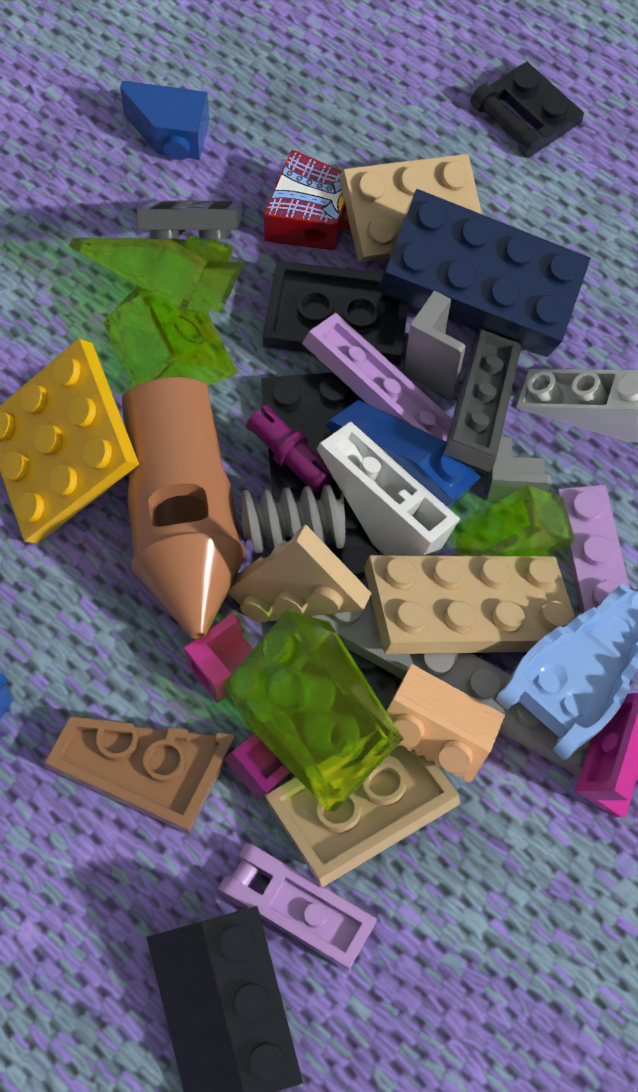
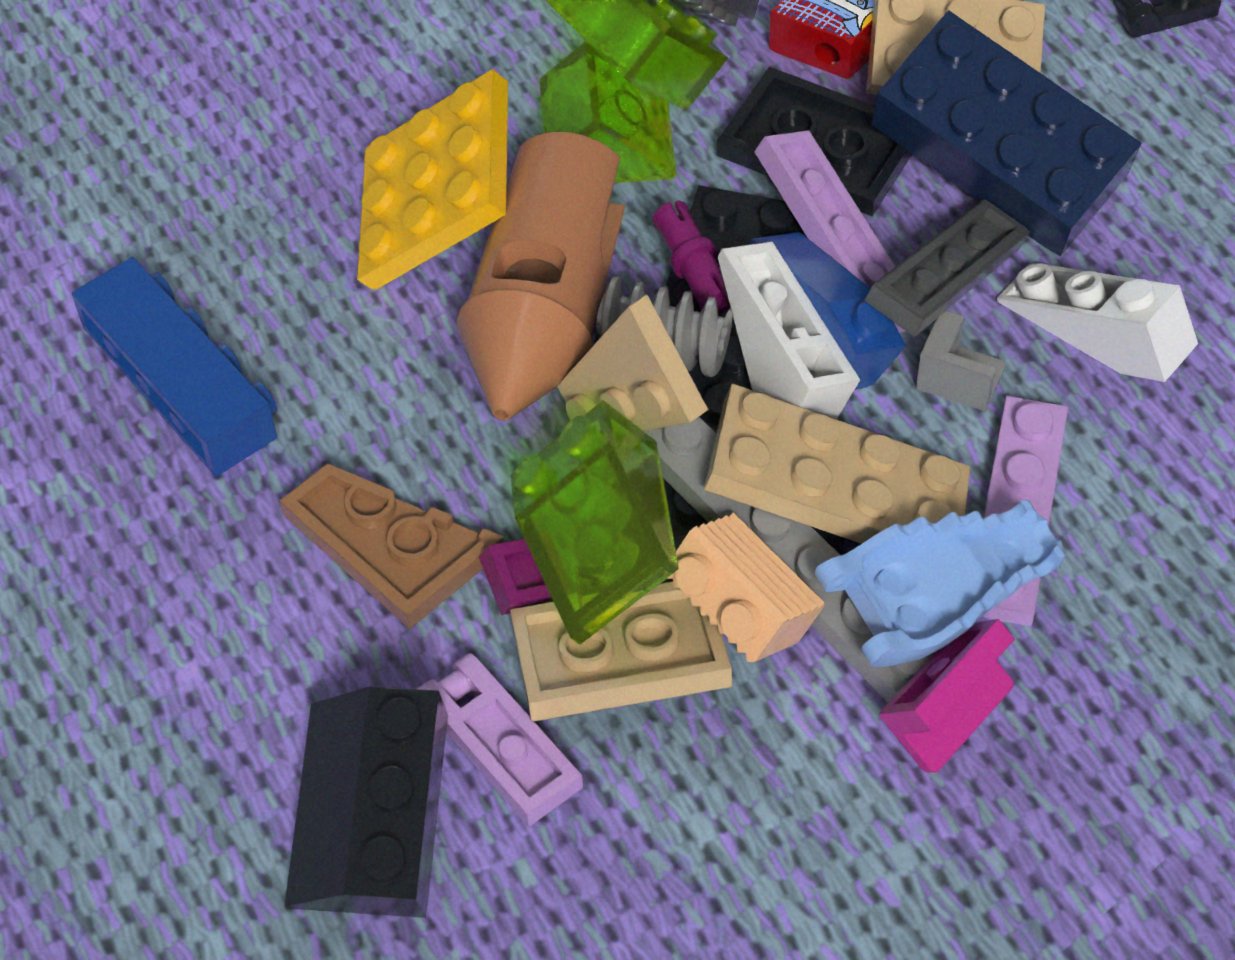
camera: 25 degrees right, 10 degrees down
(218, 655) = (512, 441): dark pink panel -> none
(431, 354) = (908, 191): light grey panel -> none
(519, 525) = (939, 413): clear neon green slope -> none

